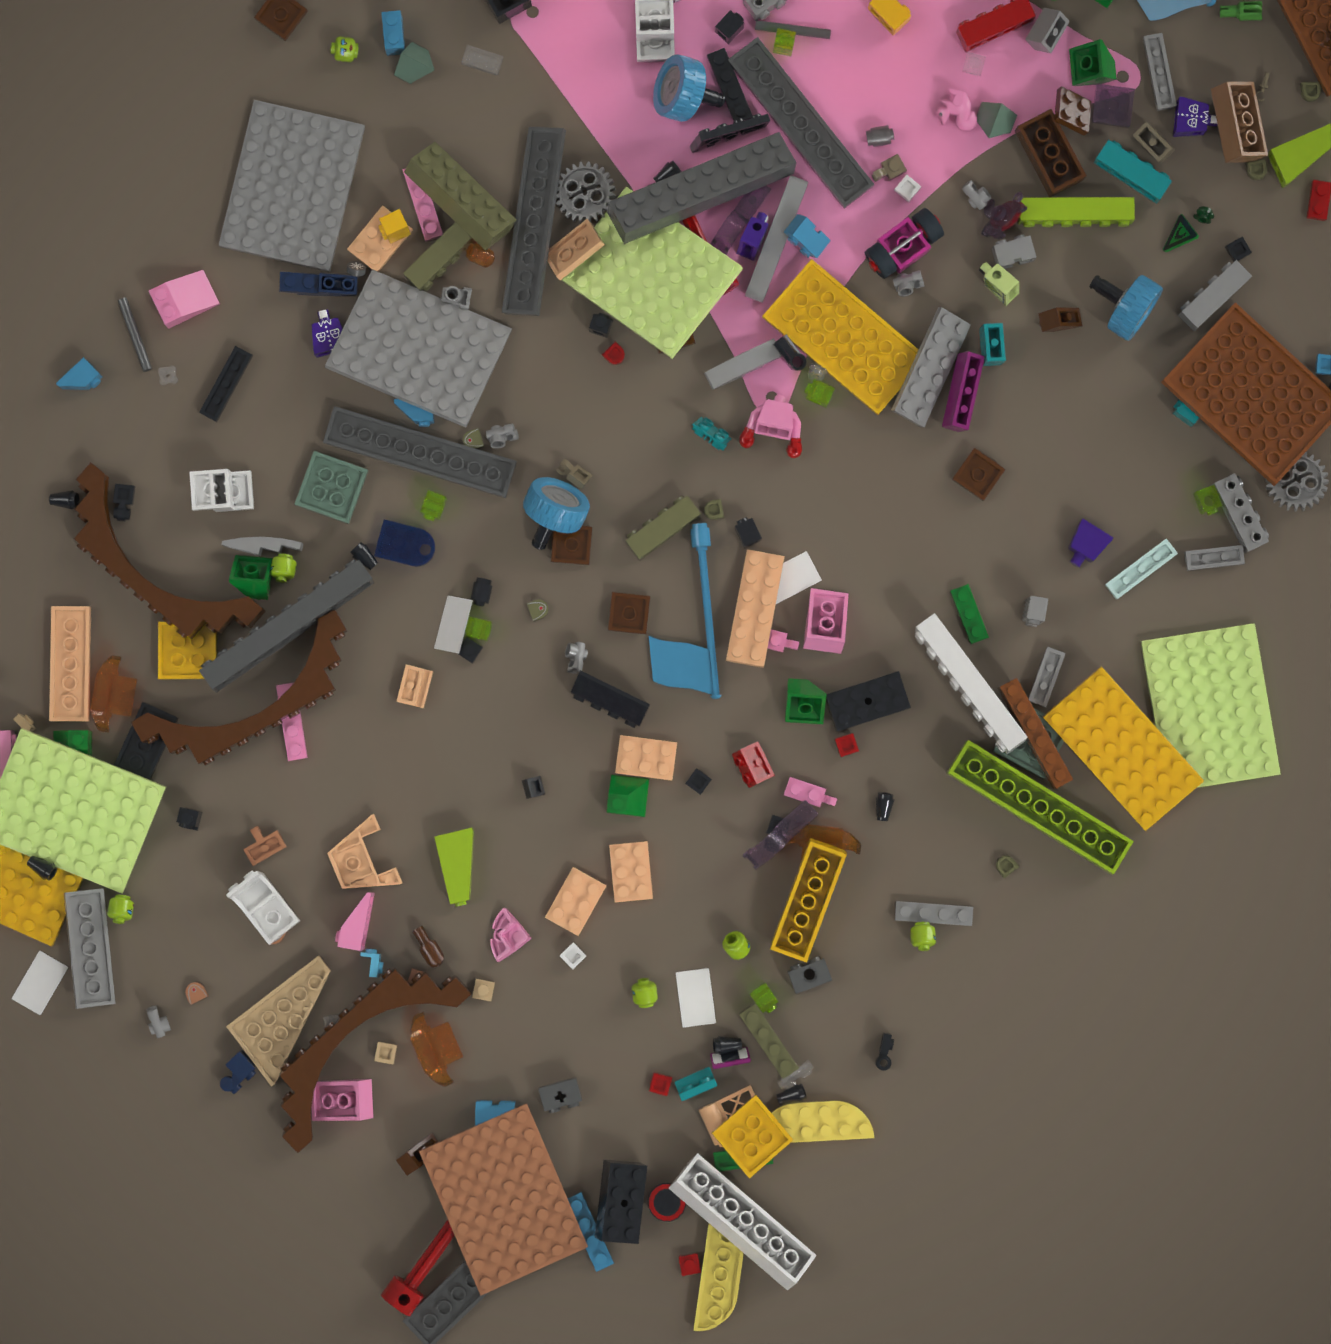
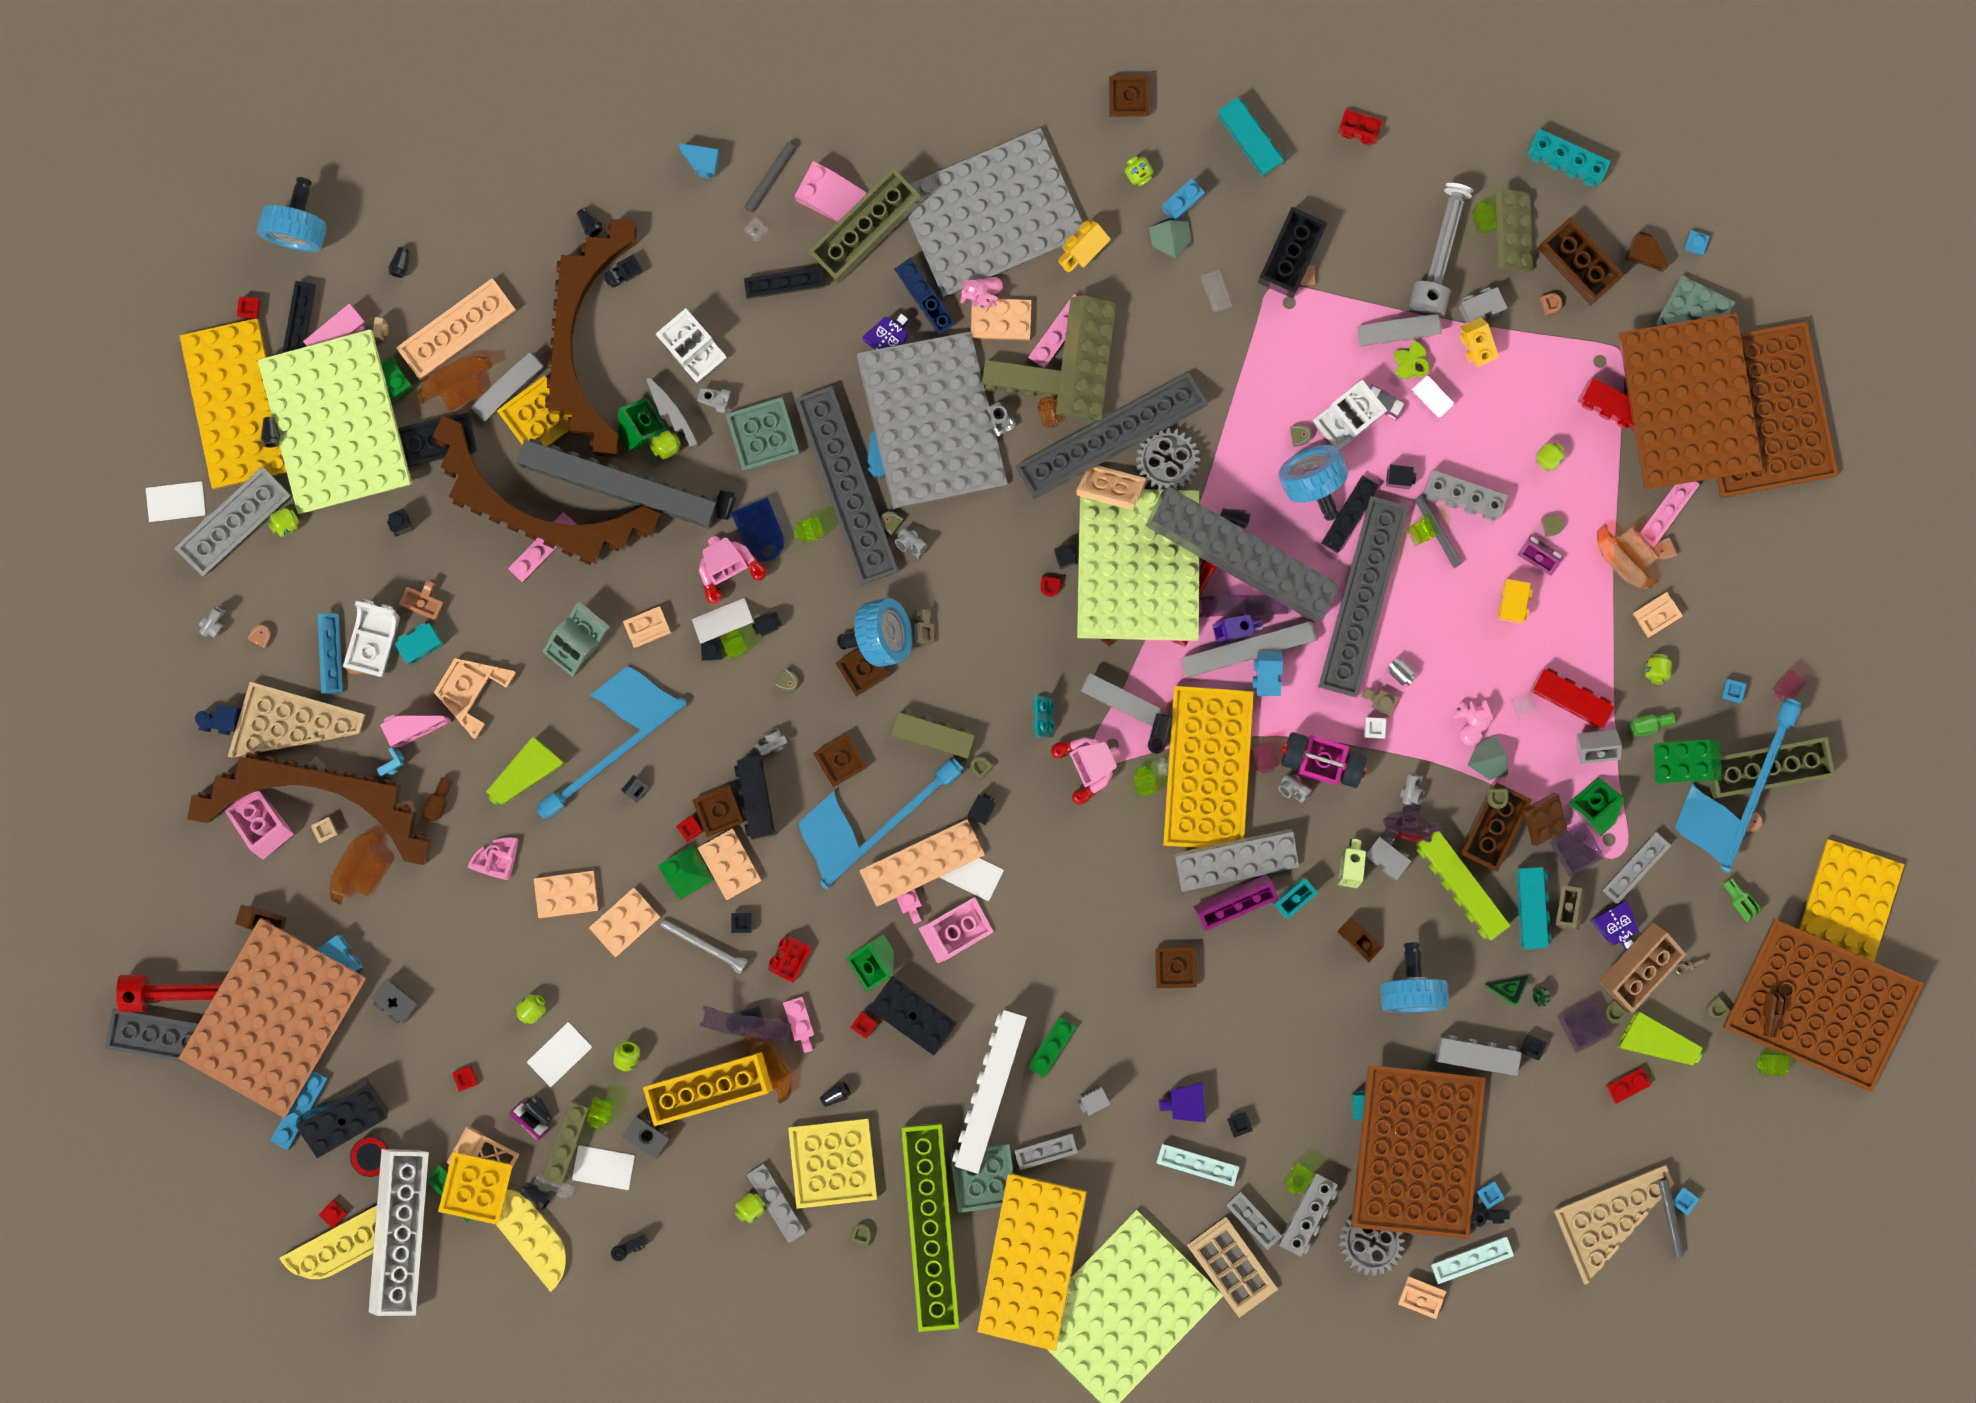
camera: 55 degrees right, 0 degrees up
(145, 656) = (507, 386): none -> light grey slope
(229, 287) = (866, 225): none -> olive brick
(250, 947) = (330, 653): none -> dark azure plate
(279, 501) = (718, 400): none -> light grey plate
(295, 872) = (419, 643): none -> teal brick
(348, 237) = (982, 291): none -> bright pink animal
(356, 268) = (961, 318): dark grey tile -> none
(370, 133) = (1083, 245): none -> yellow brick
(383, 747) = (576, 639): none -> sand green bracket
(394, 226) = (1017, 323): yellow brick -> none
(408, 589) = (723, 560): none -> bright pink torso
(465, 738) = (634, 701): none -> dark azure flag
(483, 989) = (436, 872): tan plate -> none
(573, 955) = (518, 926): white plate -> none
(595, 768) = (690, 828): none -> red tile
(598, 736) = (718, 811): none -> reddish brown plate
(641, 78) = (1300, 435): none -> olive tile
(695, 1083) = (486, 1108): teal bracket -> none
(727, 807) = (737, 963): none -> light grey piece
(728, 132) = (1292, 531): black wing -> none
(808, 1027) = (603, 1167): none -> white sticker
(868, 288) = (1264, 757): none -> clear pink brick
(935, 847) = (832, 1163): none -> light yellow plate
(1030, 133) = (1497, 797): none -> olive tile
(1037, 735) = (989, 1177): dark orange brick -> none
(1133, 514) = (1239, 1124): none -> black plate
(1237, 600) = (1232, 1267): none -> tan piece
(1250, 199) = (1584, 1025): none -> clear purple plate

